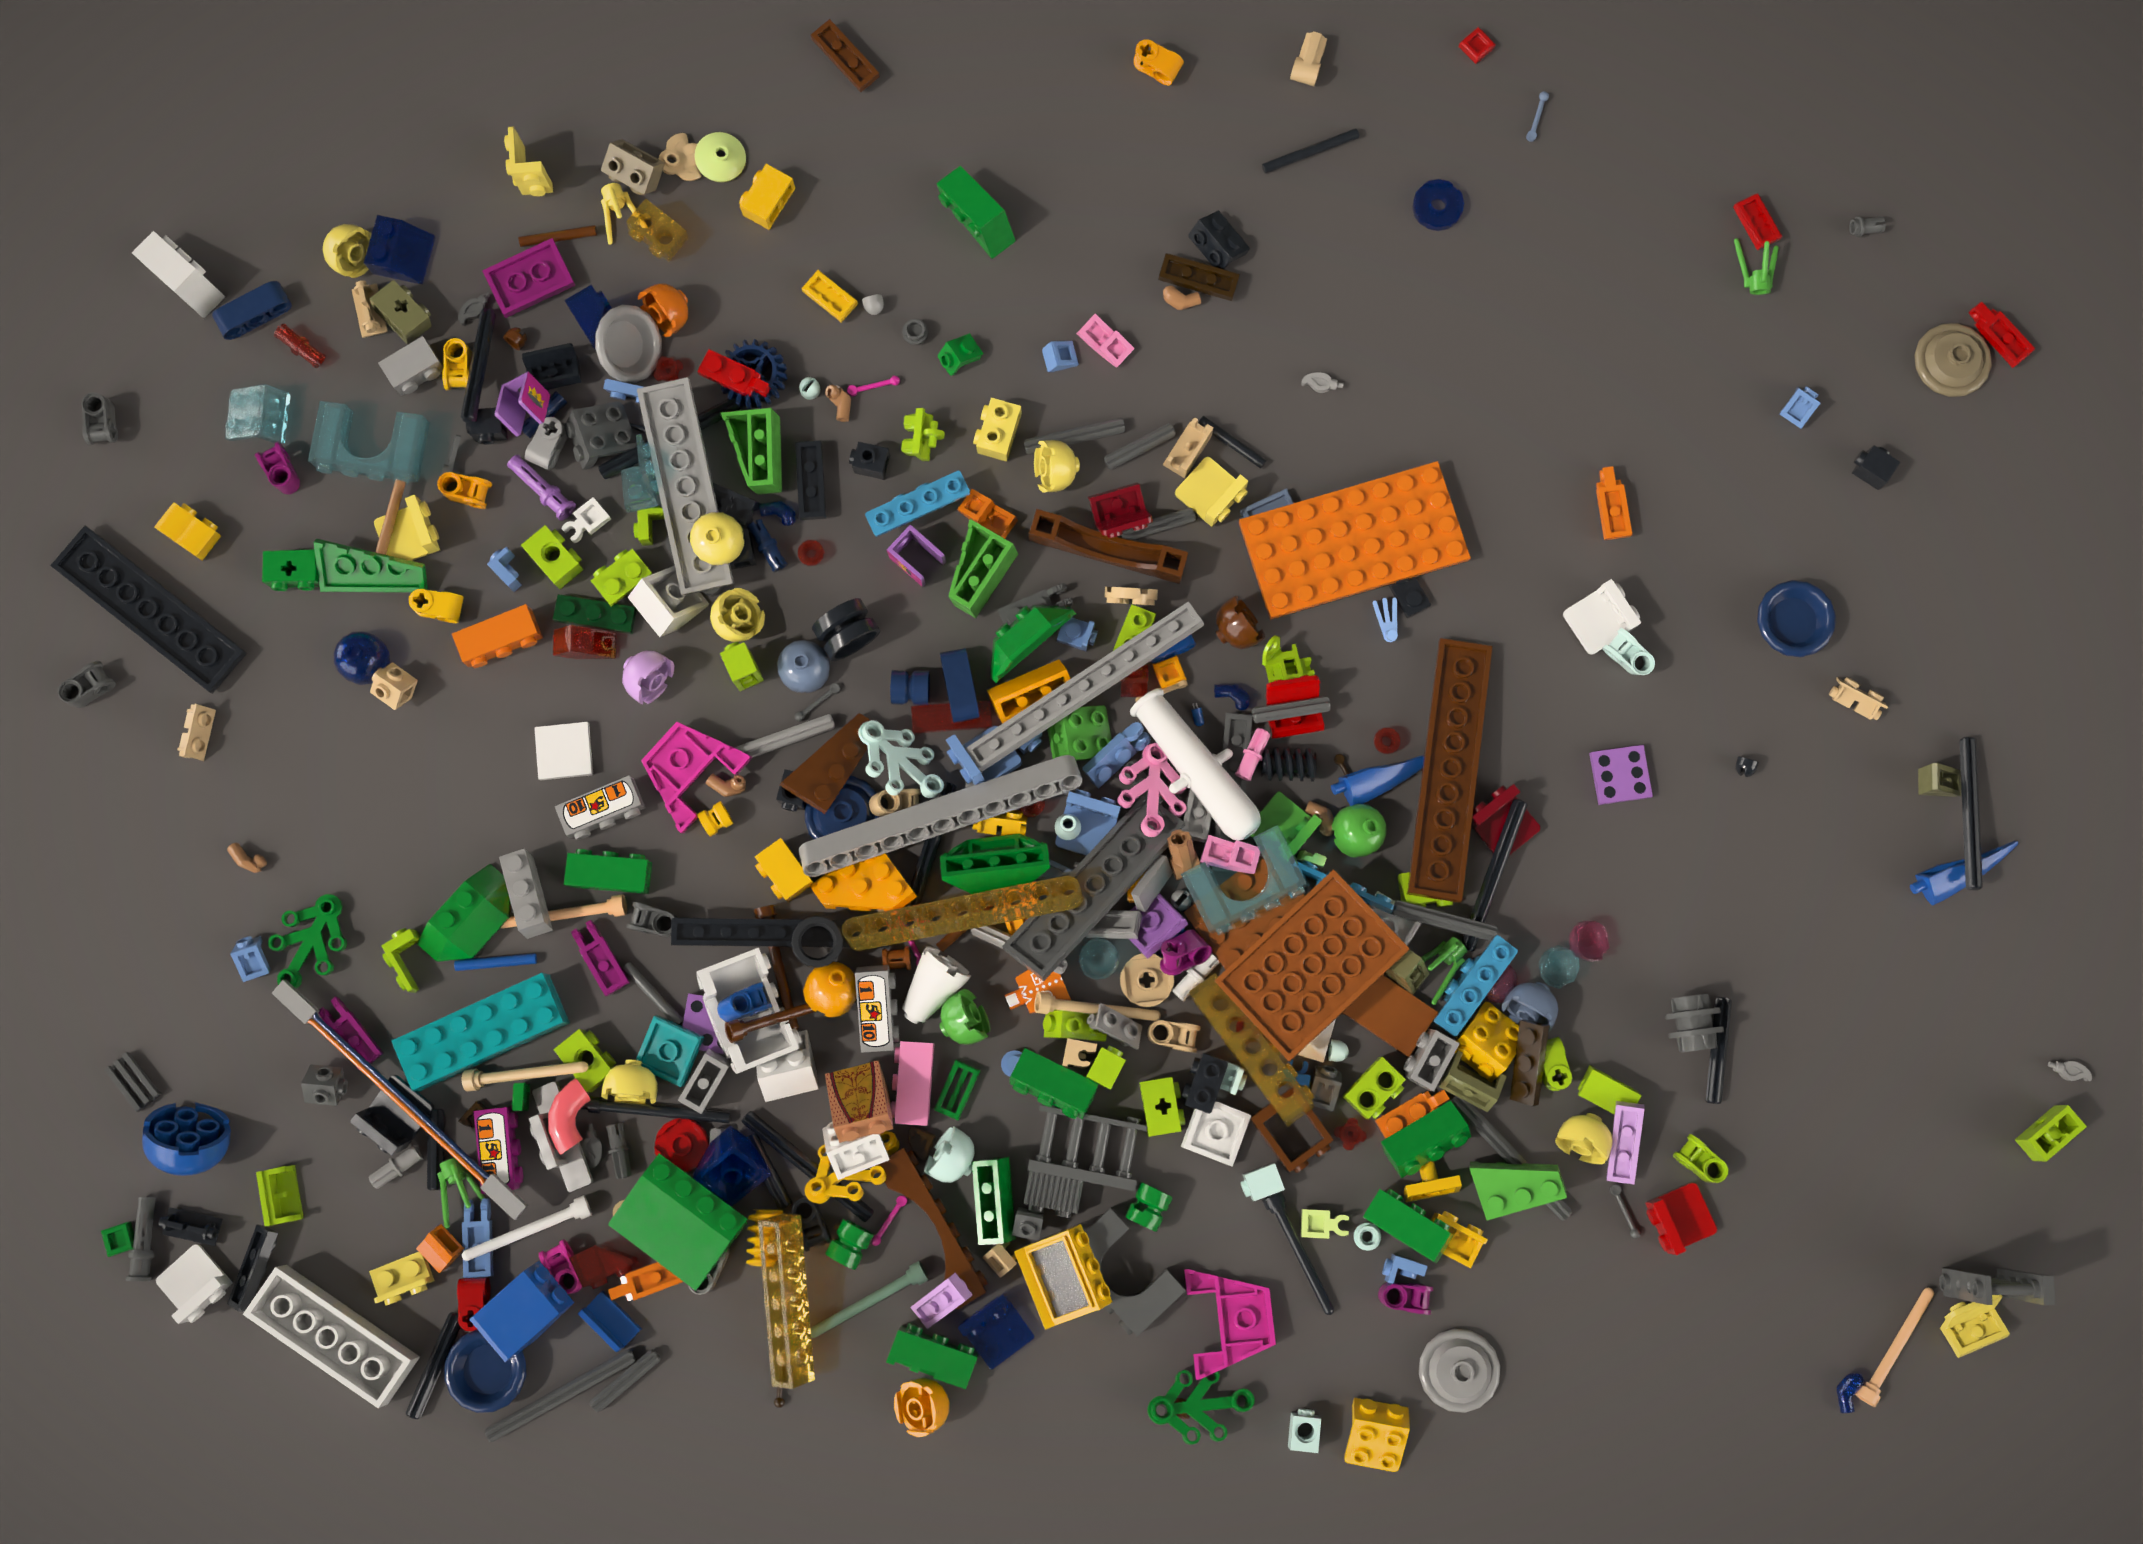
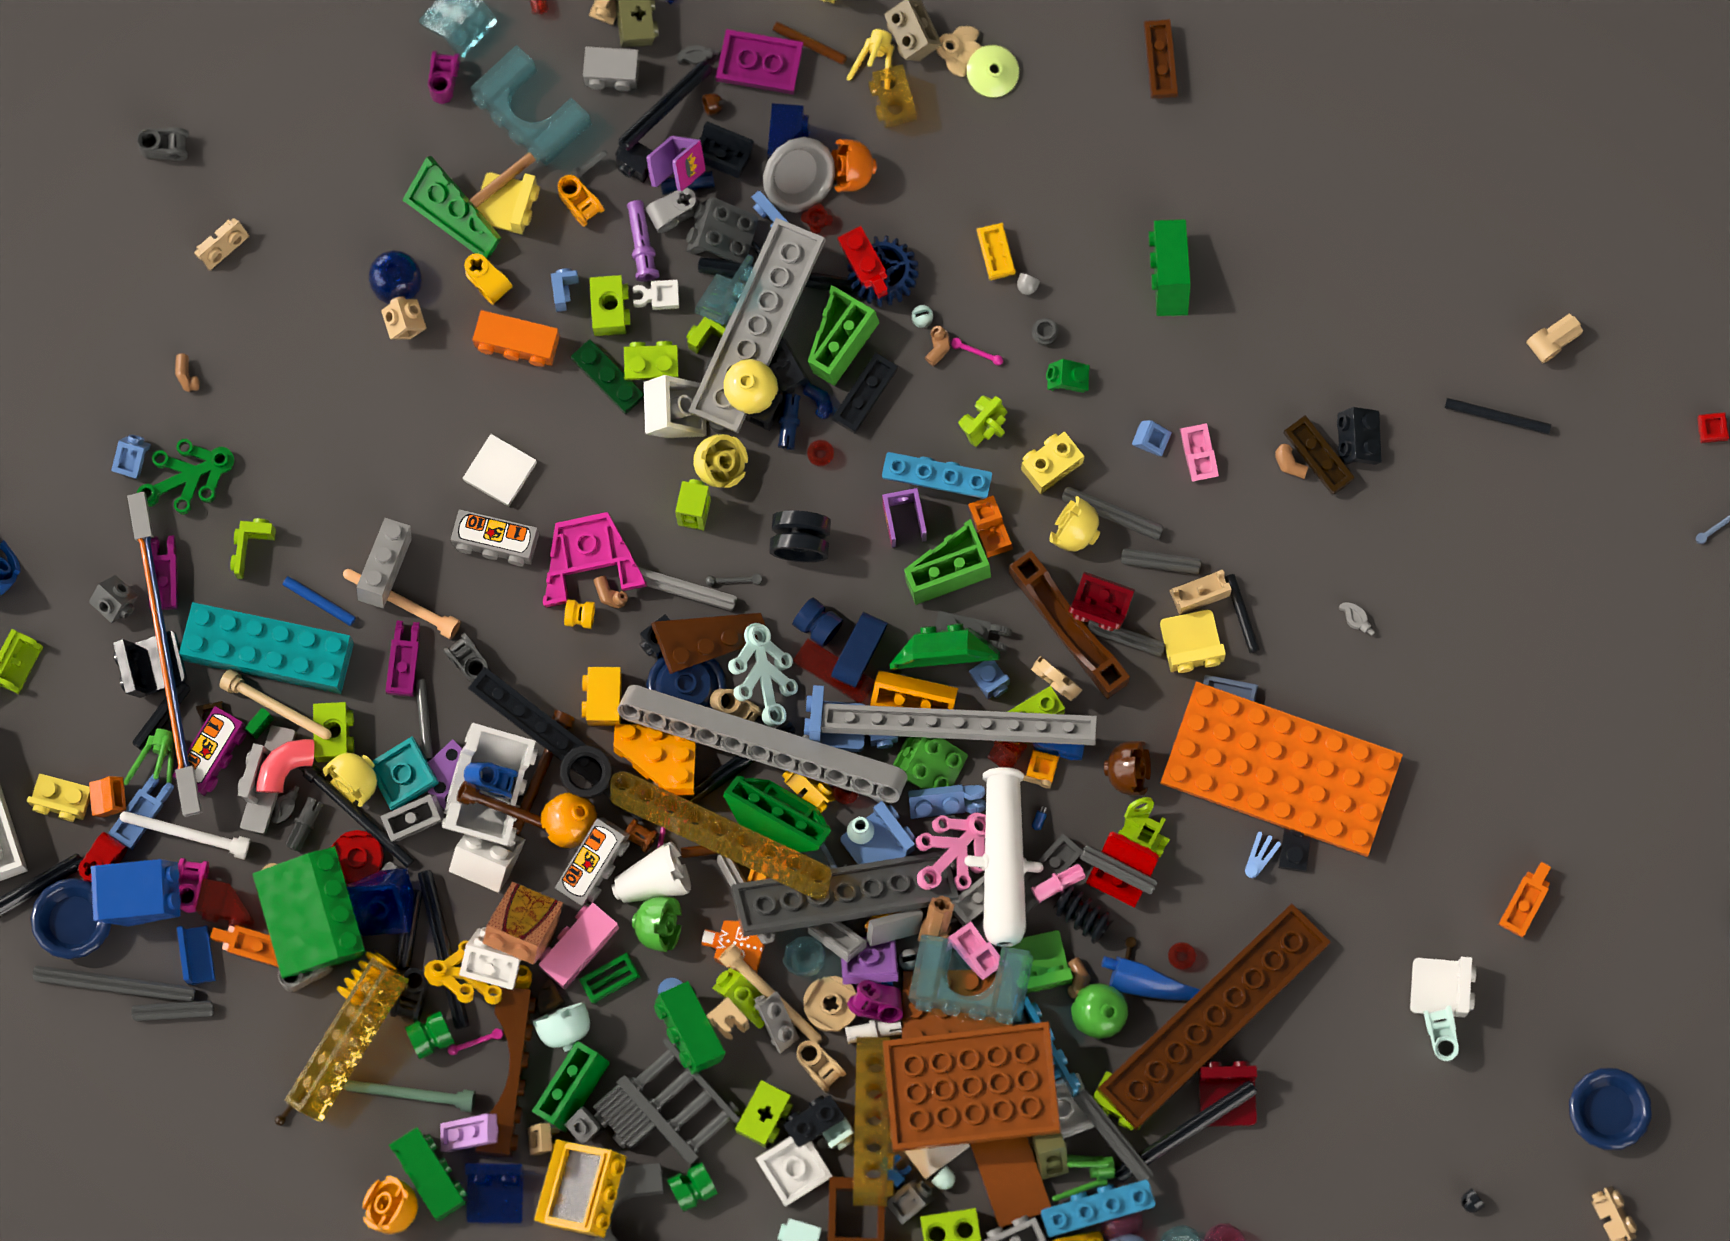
camera: 40 degrees right, 5 degrees down
(148, 609) = (256, 117): black plate -> none
(188, 531) = (334, 76): yellow brick -> none
(280, 563) = (386, 155): green brick -> none
(395, 1167) = (120, 706): light grey axle -> none
(456, 369) = (644, 96): yellow piece -> none
(468, 917) = (324, 549): green wedge -> none
(584, 643) = (581, 394): clear red slope -> none
(608, 872) = (462, 594): green brick -> none
(646, 675) = (610, 457): lavender cylinder -> none
(766, 196) = (1006, 131): yellow brick -> none
(803, 666) = (744, 542): sand blue cylinder -> none
(870, 460) = (926, 412): black brick -> none
(1106, 1067) = (743, 1047): lime brick -> none
(1158, 63) = (1423, 253): light orange piece -> none
(1235, 692) = (1084, 823): clear blue arm -> none
(1316, 859) = (1044, 1006): yellowish green tile -> none
(1433, 218) = (1562, 550): clear blue tile -> none
(1620, 775) = (1359, 1130): medium lavender tile -> none

